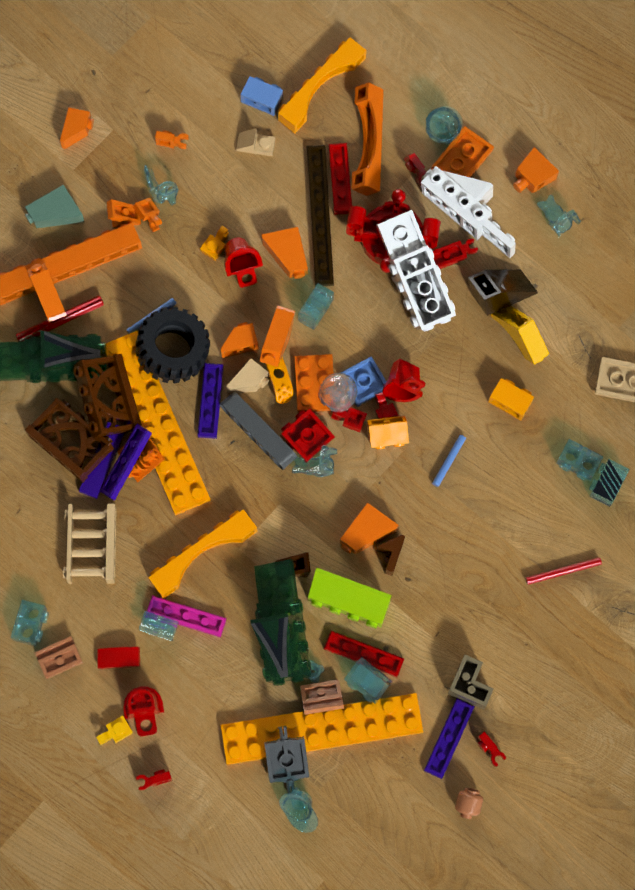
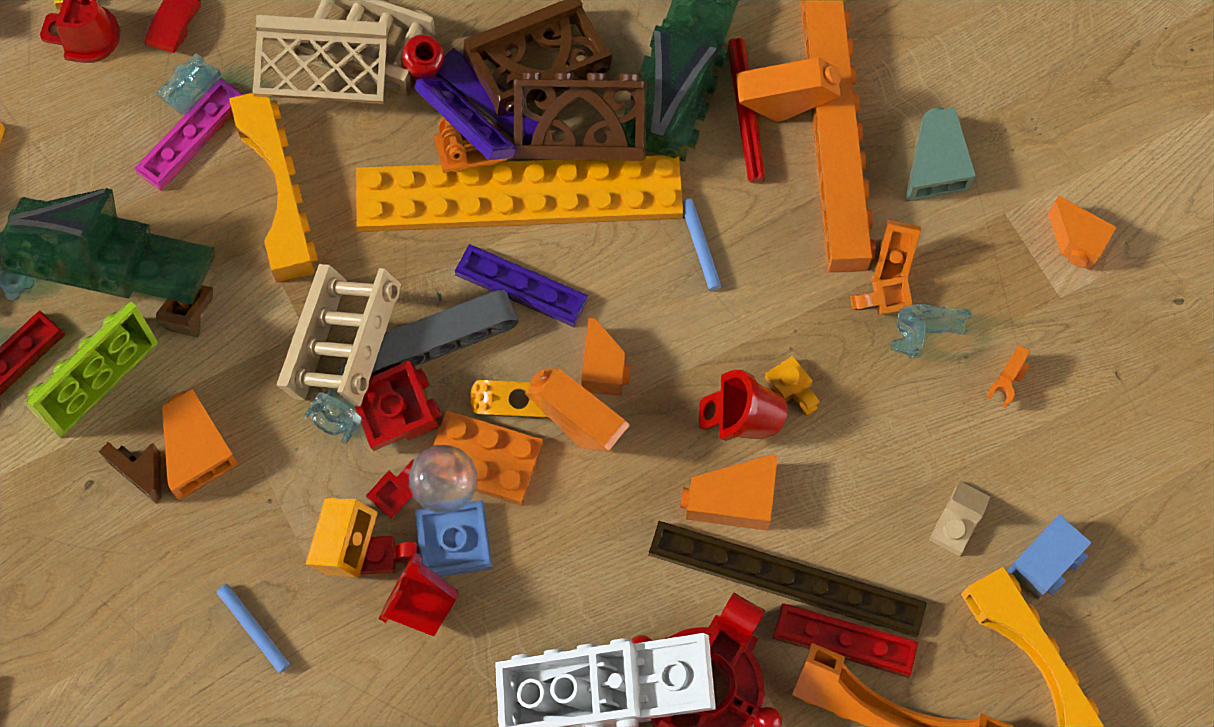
camera: 110 degrees right, 5 degrees down
(95, 500) = (426, 48): none -> red head
(106, 560) = (317, 32): none -> tan fence
(172, 322) = (636, 202): black tyre -> none
(249, 378) = (529, 349): tan slope -> none
(271, 494) = (314, 325): none -> tan fence
(316, 306) = (615, 503): clear light blue brick -> none

